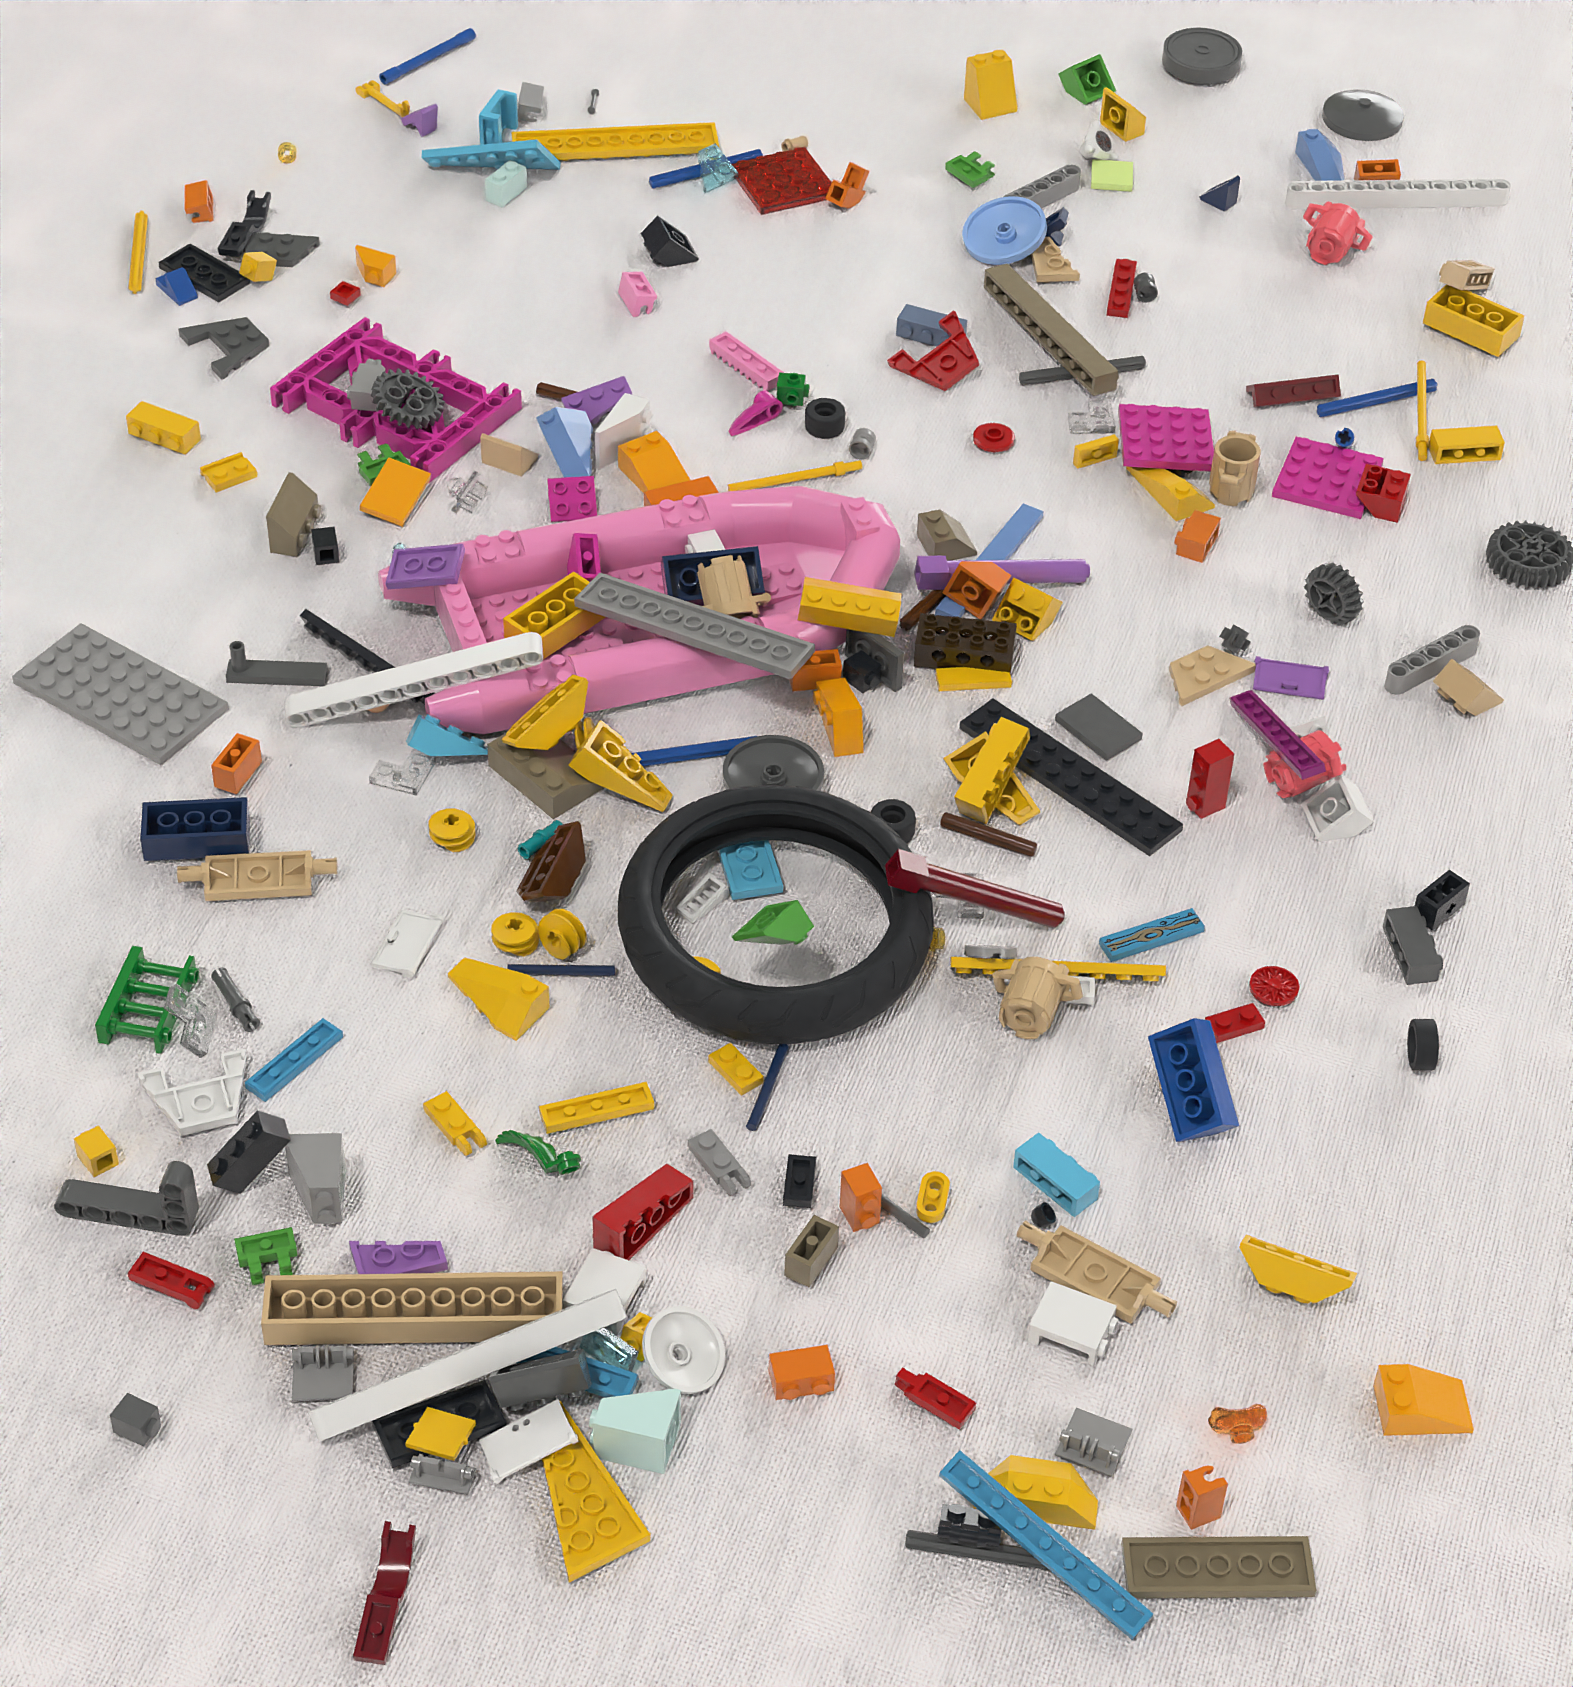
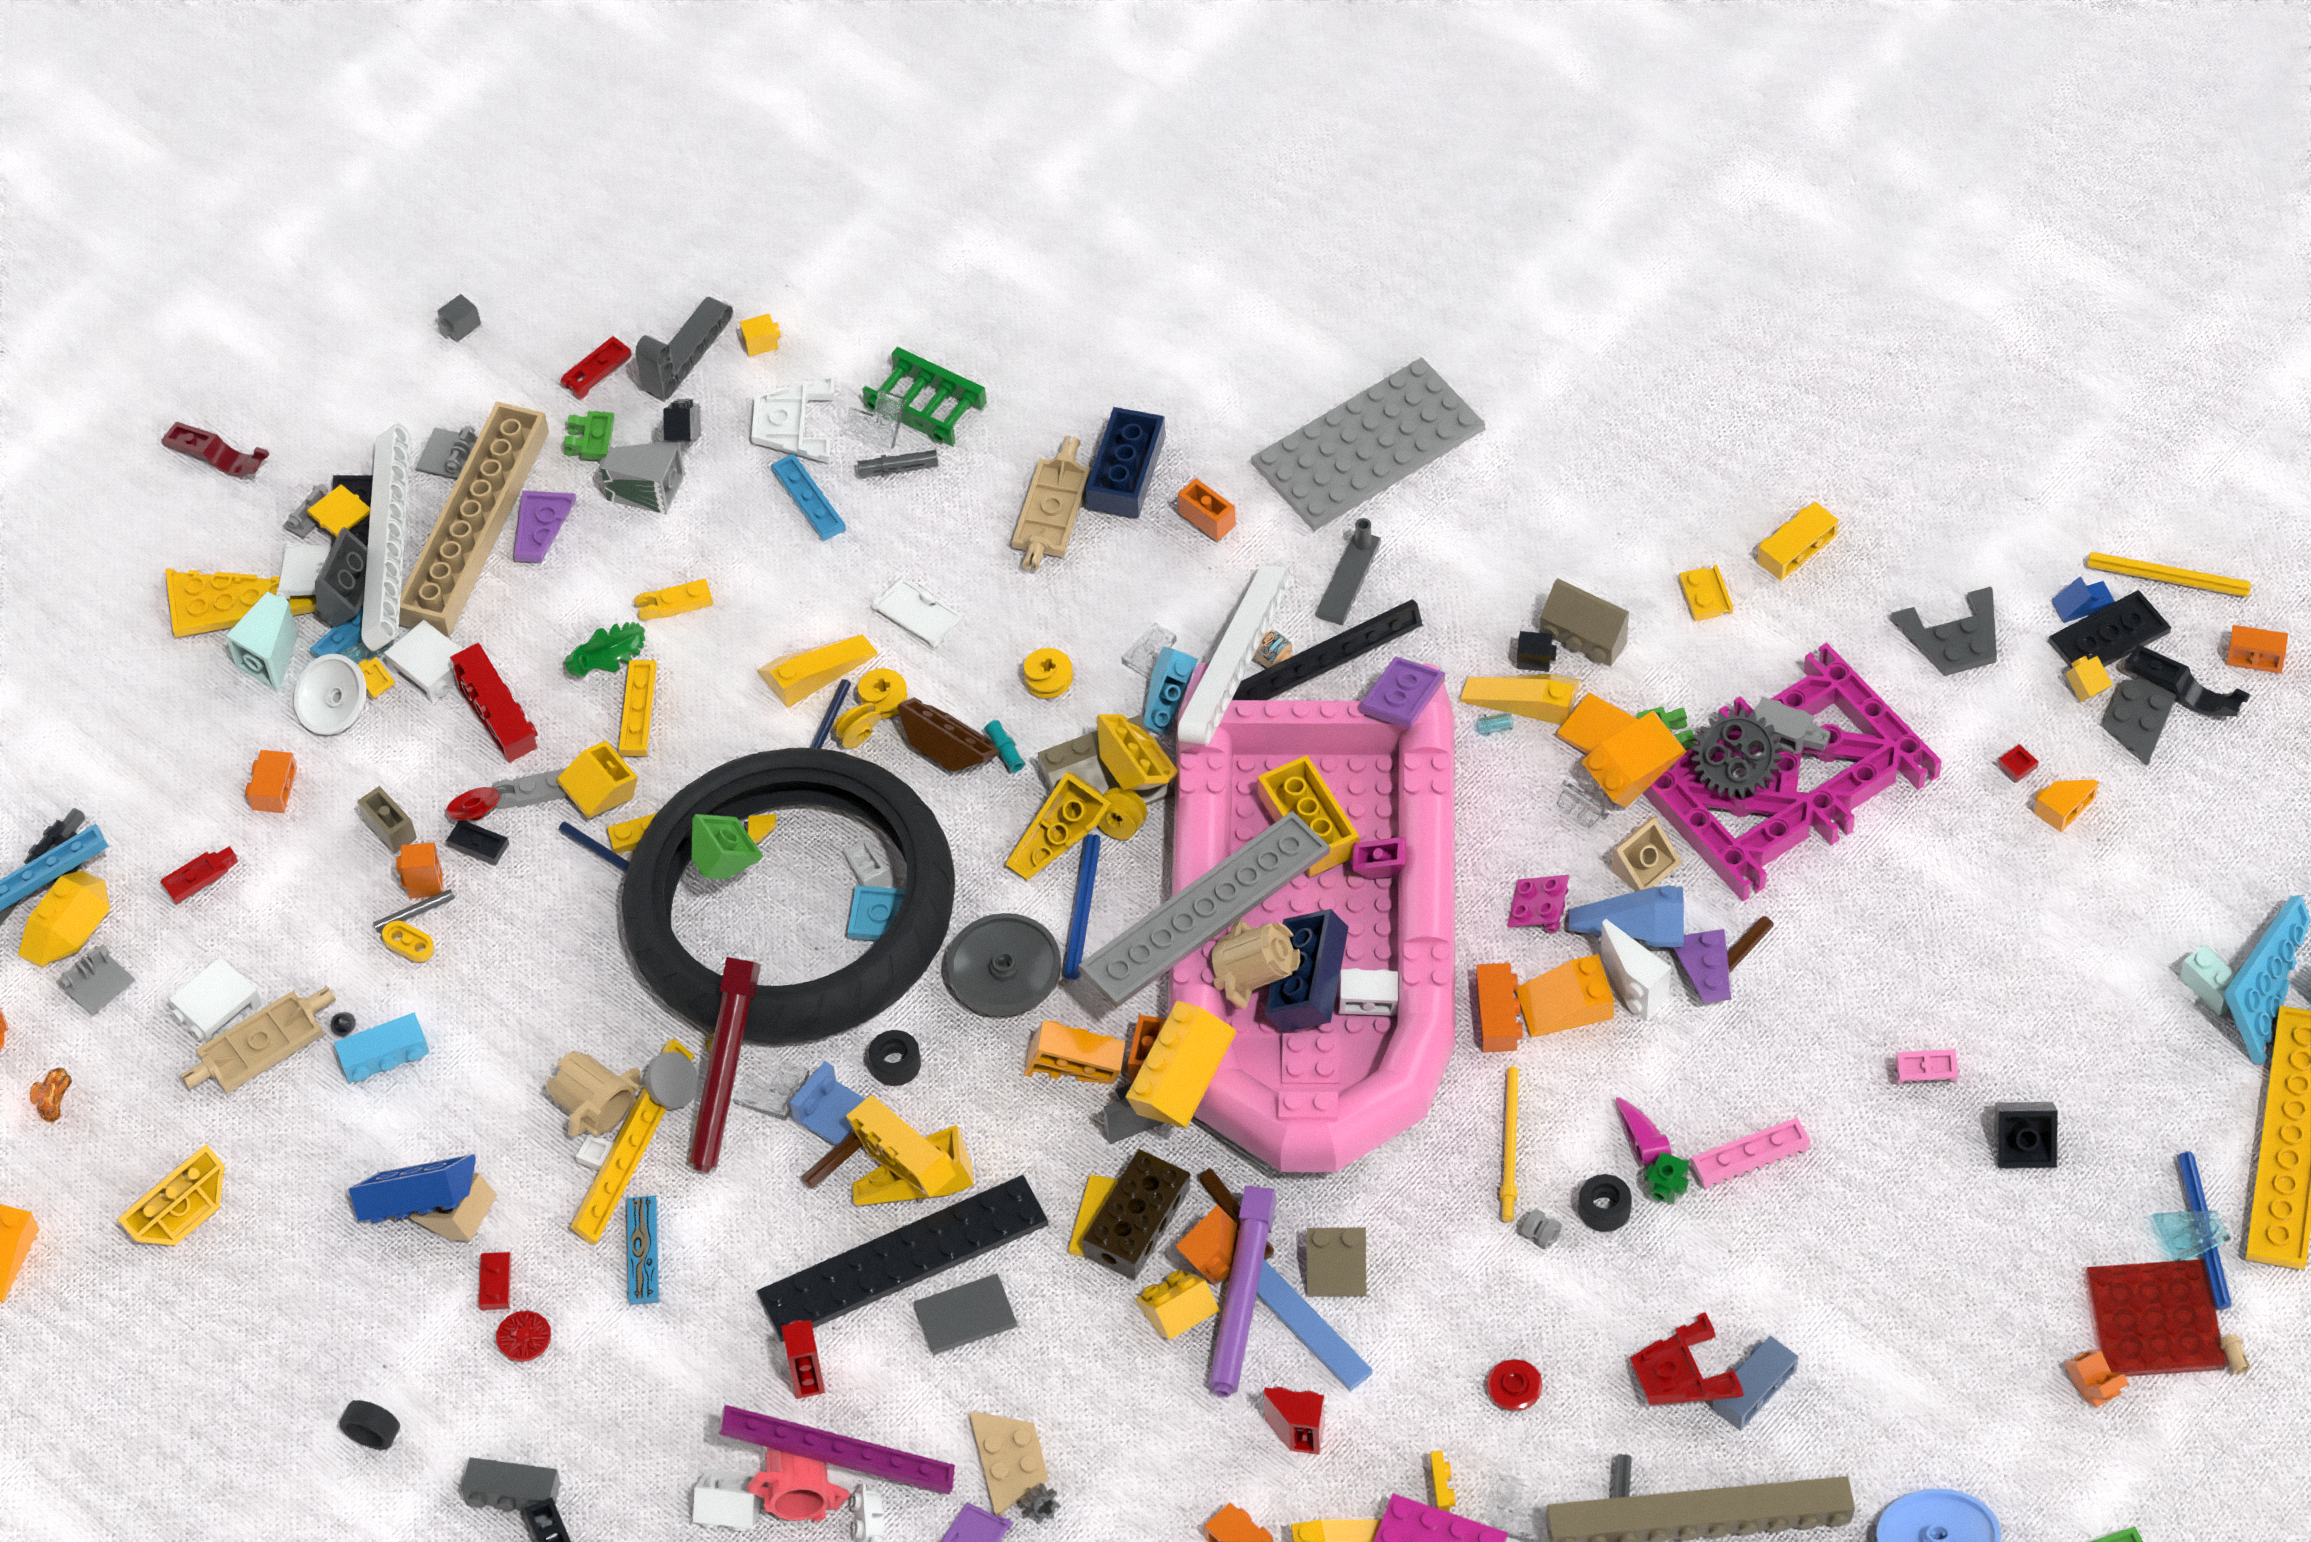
camera: 115 degrees right, 10 degrees up
(366, 541) = (1532, 696): none -> yellow wedge
(430, 454) = (1634, 758): none -> light orange slope
(698, 1099) = (598, 780): none -> yellow slope
(751, 1187) = (473, 804): none -> red dish
(958, 851) = (824, 1104): none -> medium blue bracket
(1092, 517) = (1296, 1418): none -> red slope

